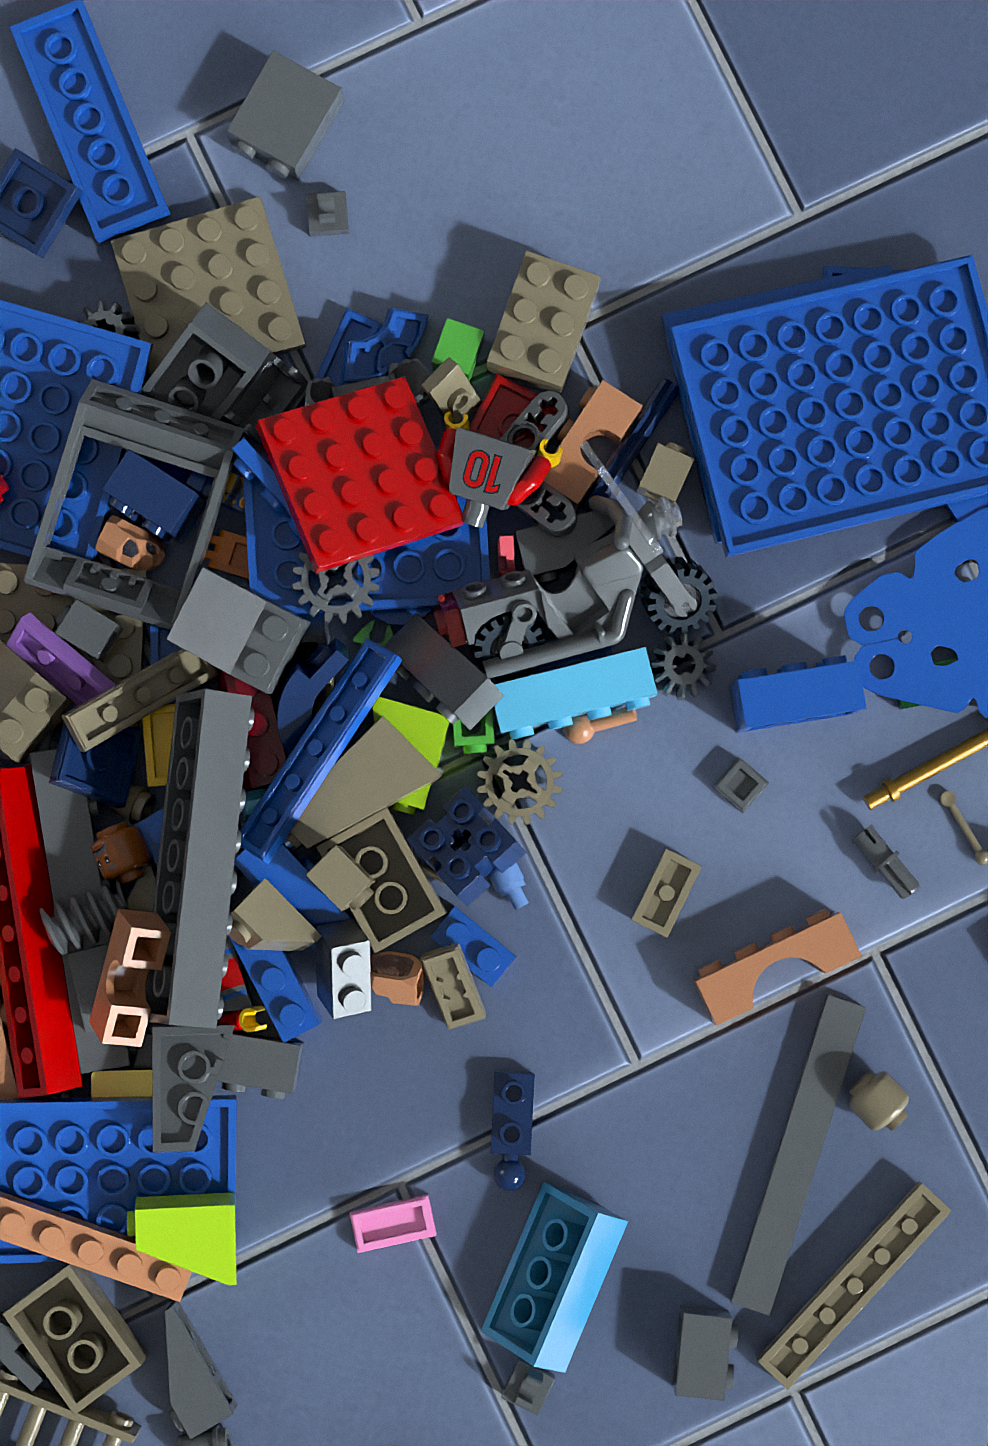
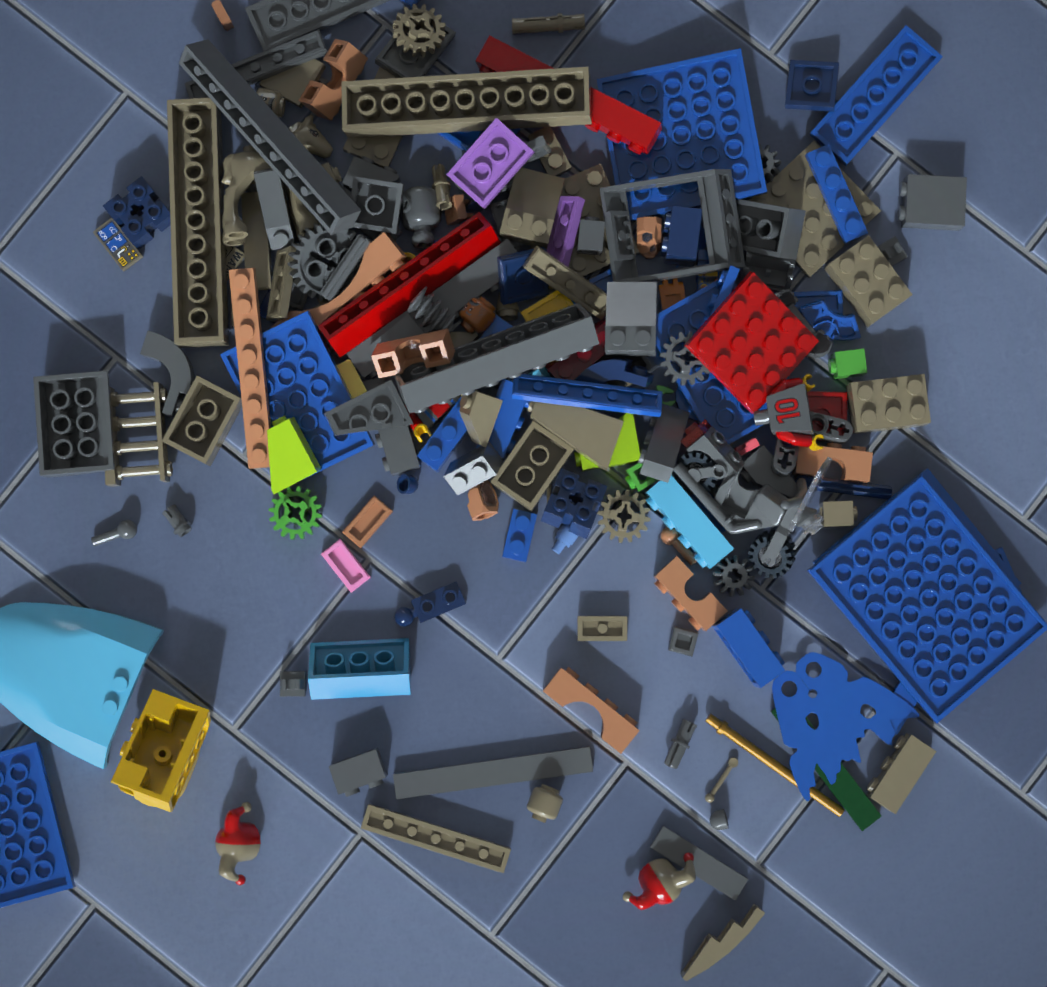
camera: 65 degrees right, 0 degrees up
(195, 1384) = (208, 498): dark grey slope -> none
(204, 246) = (836, 194): none -> blue plate
(275, 1244) = (286, 520): none -> bright green gear
(318, 1075) = (407, 484): none -> dark blue hinge
(342, 879) = (523, 442): dark tan brick -> none
(344, 1160) = (367, 521): none -> nougat tile
(353, 264) = (868, 281): none -> dark tan brick
(451, 391) = (823, 371): dark tan plate -> none
(453, 985) = (492, 534): dark tan plate -> none
(713, 735) = (673, 580): none -> nougat arch

